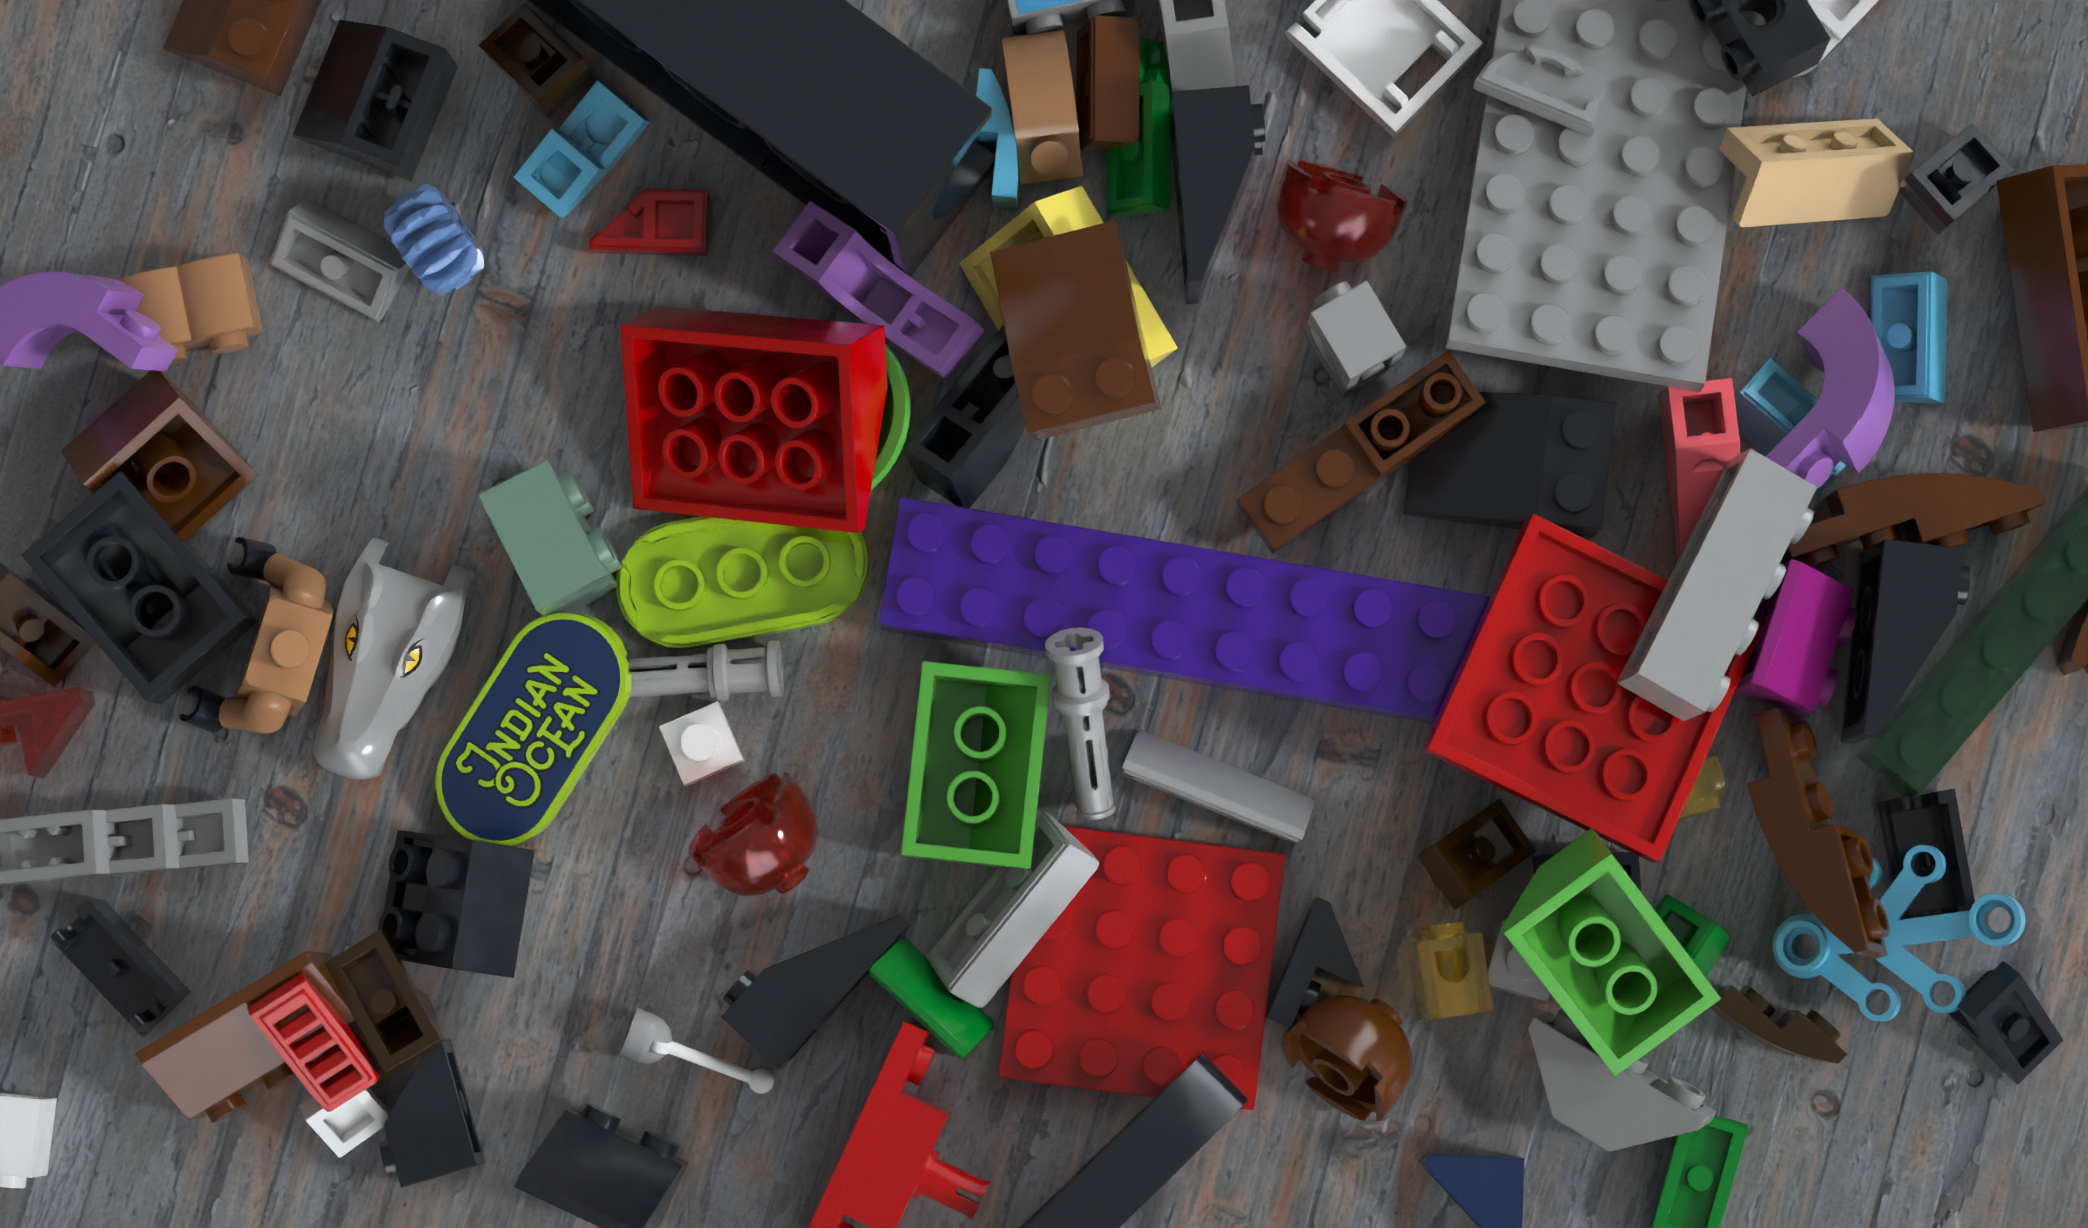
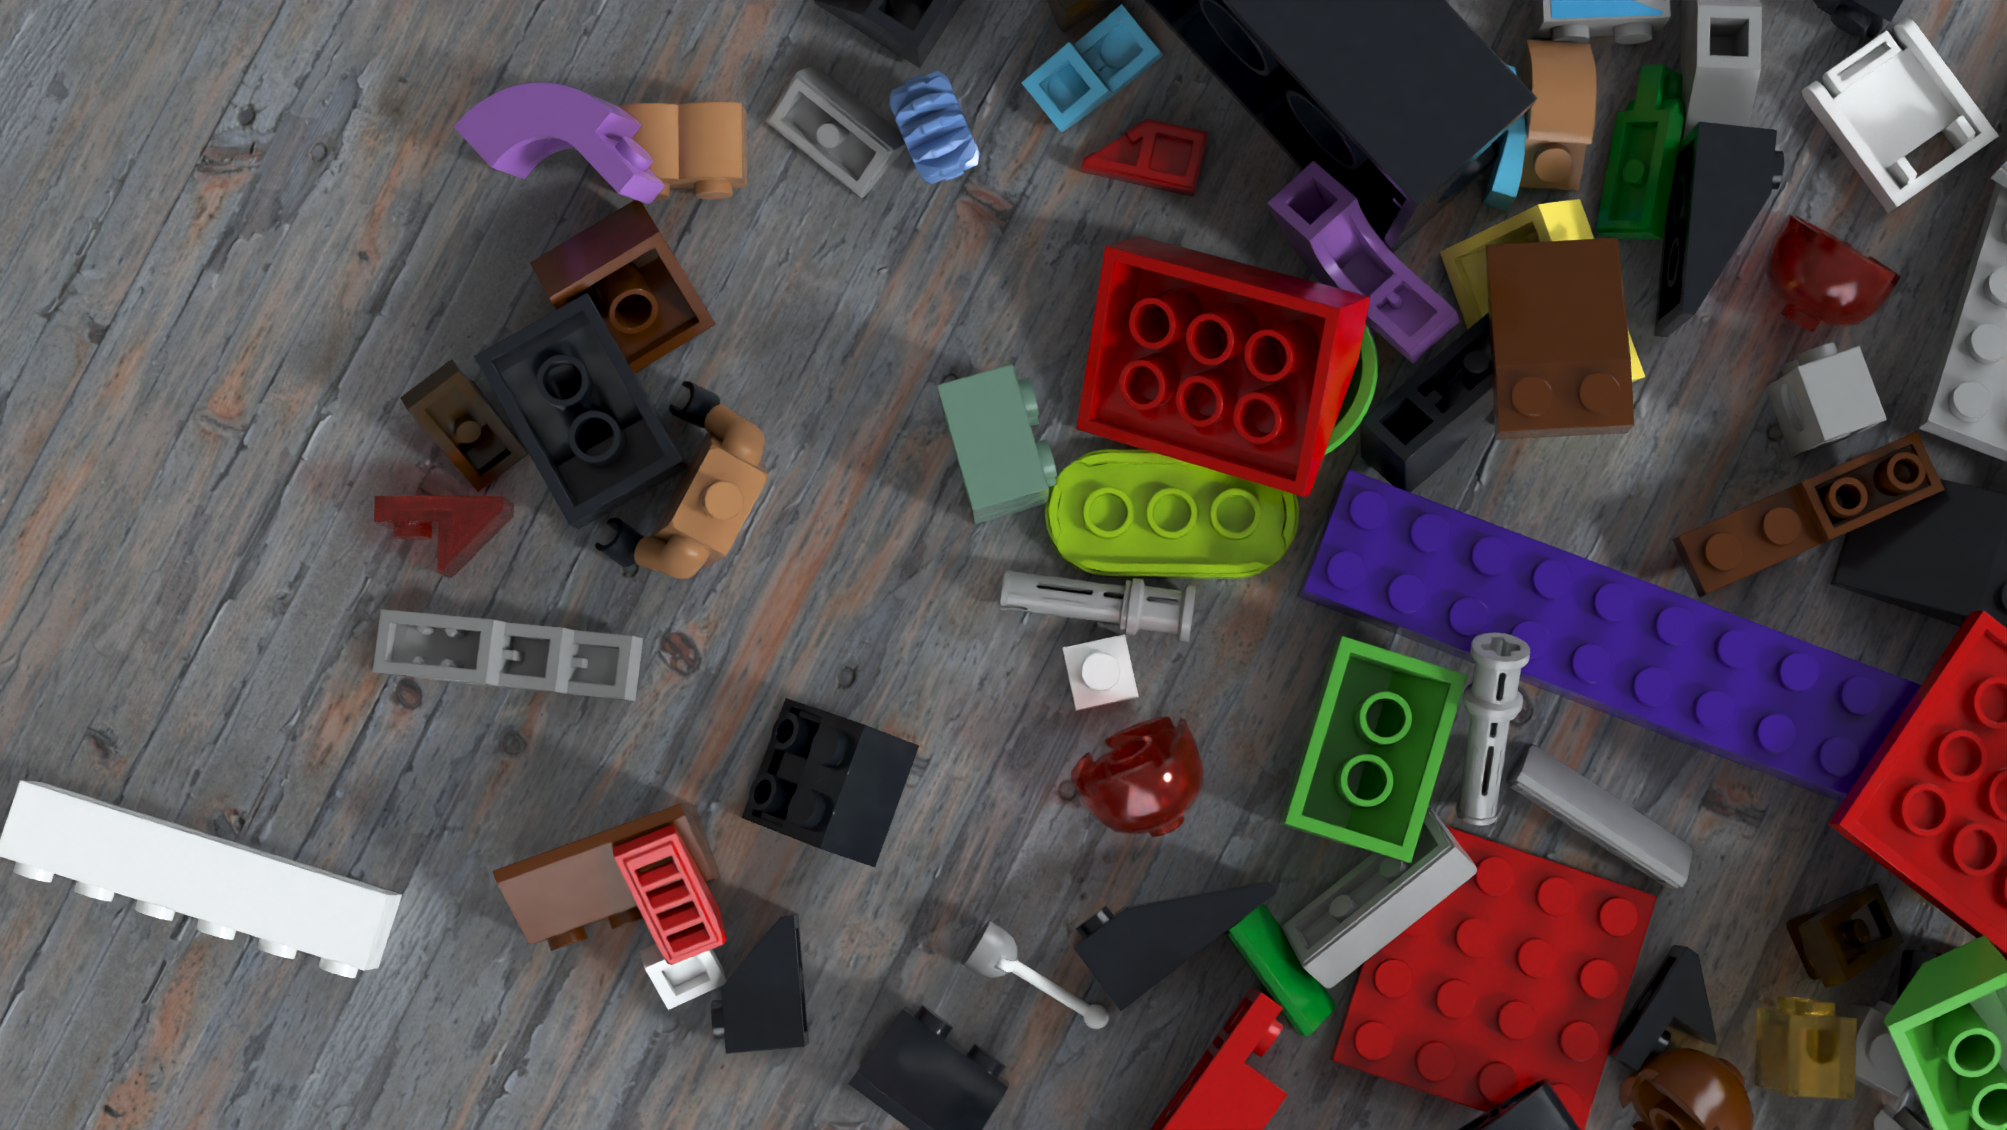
camera: 10 degrees right, 0 degrees up
(120, 965) = (490, 777): black hinge -> none
(385, 1002) = (745, 867): dark brown slope -> none
(387, 650) = (806, 525): light grey animal -> none
(533, 729) = (940, 625): tile -> none
(1108, 83) = (1626, 102): reddish brown slope -> none

